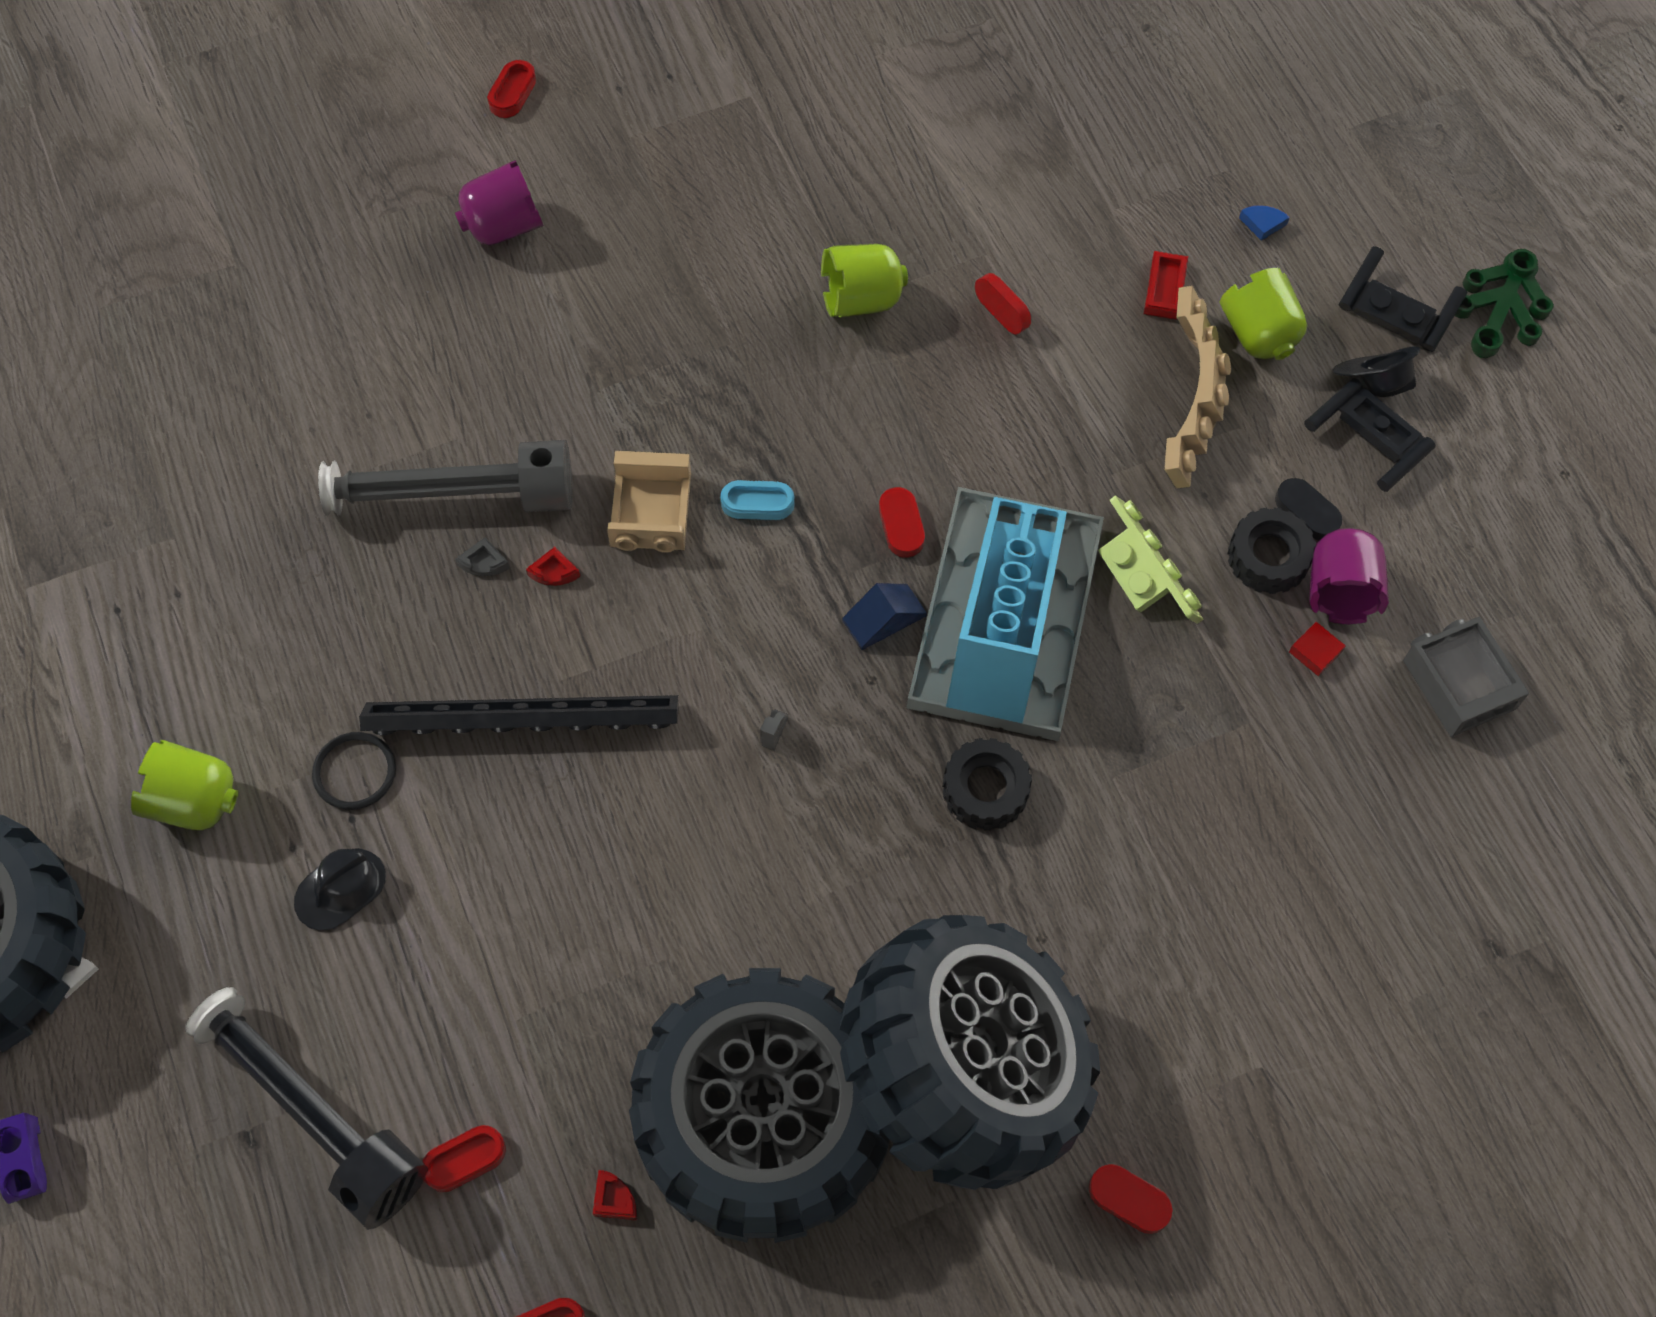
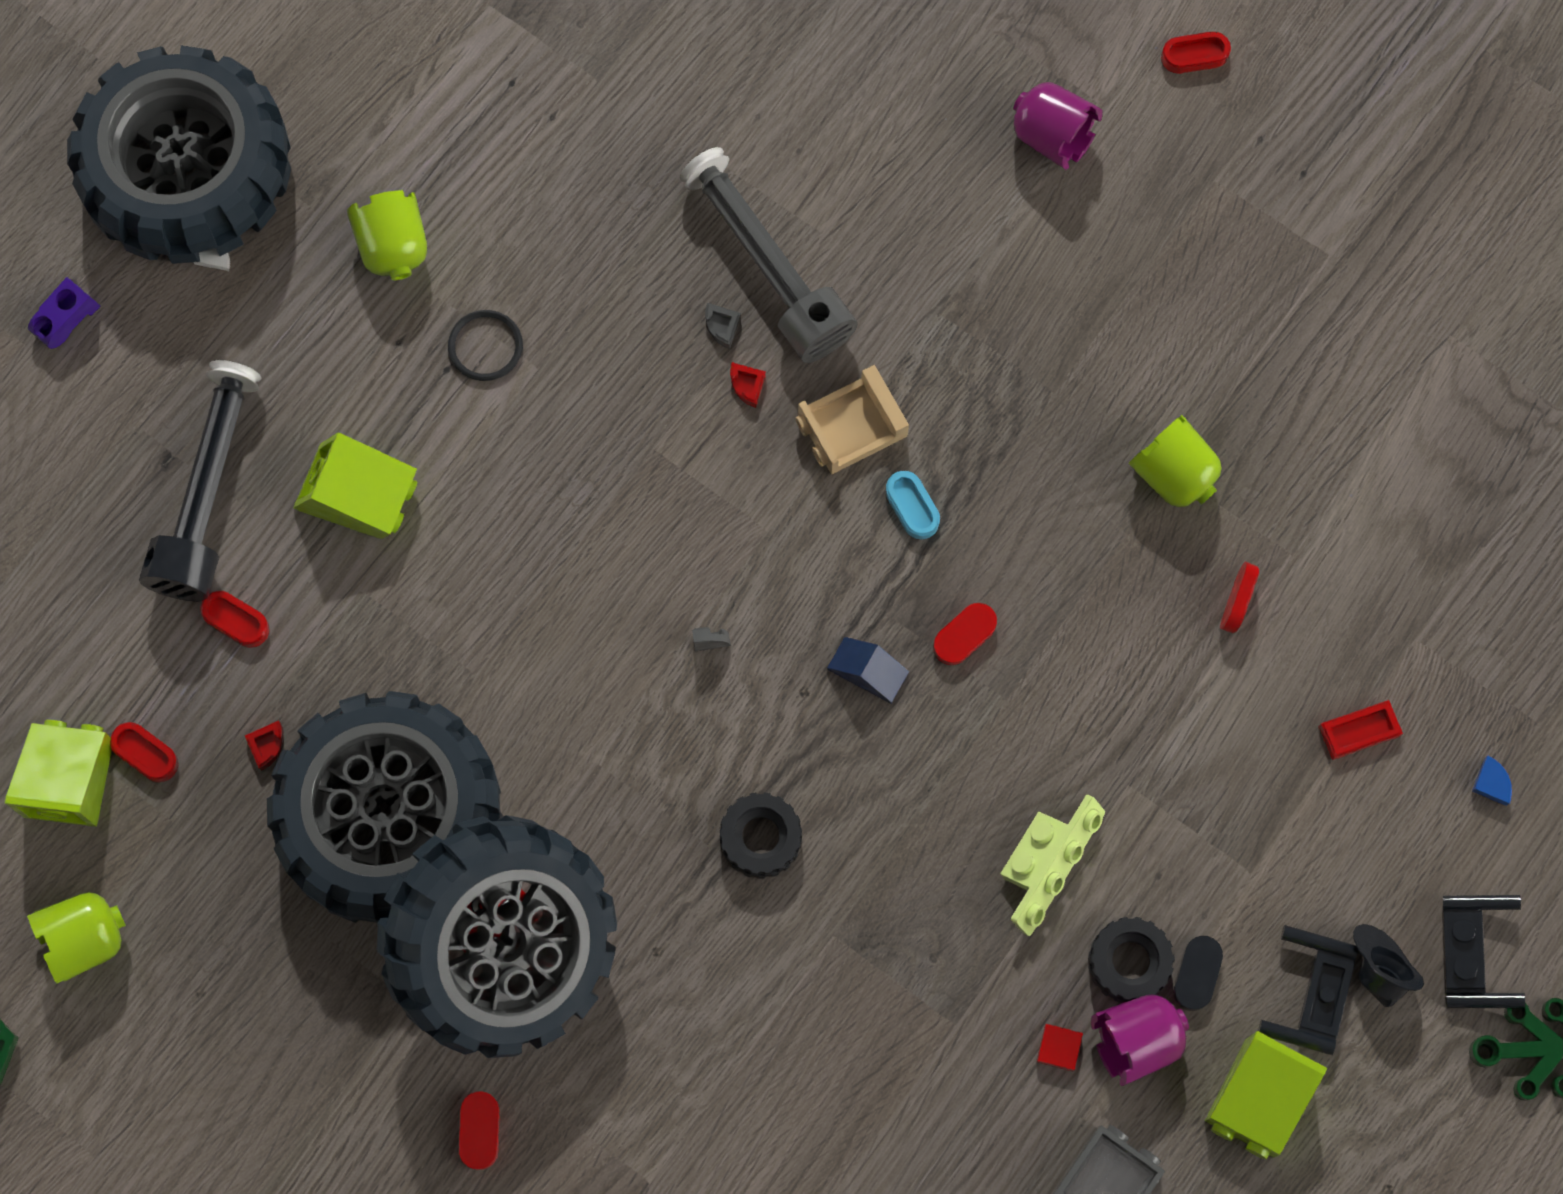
camera: 60 degrees right, 10 degrees up
(339, 888) = (386, 397): black piece -> none
(411, 961) = (356, 487): none -> lime slope
(507, 714) = (603, 439): black plate -> none
(1006, 614) = (932, 767): piece -> none
(1211, 391) = (1258, 823): tan piece -> none
(1265, 315) = (1370, 835): lime cylinder -> none
(1447, 508) = (1264, 1095): none -> lime slope

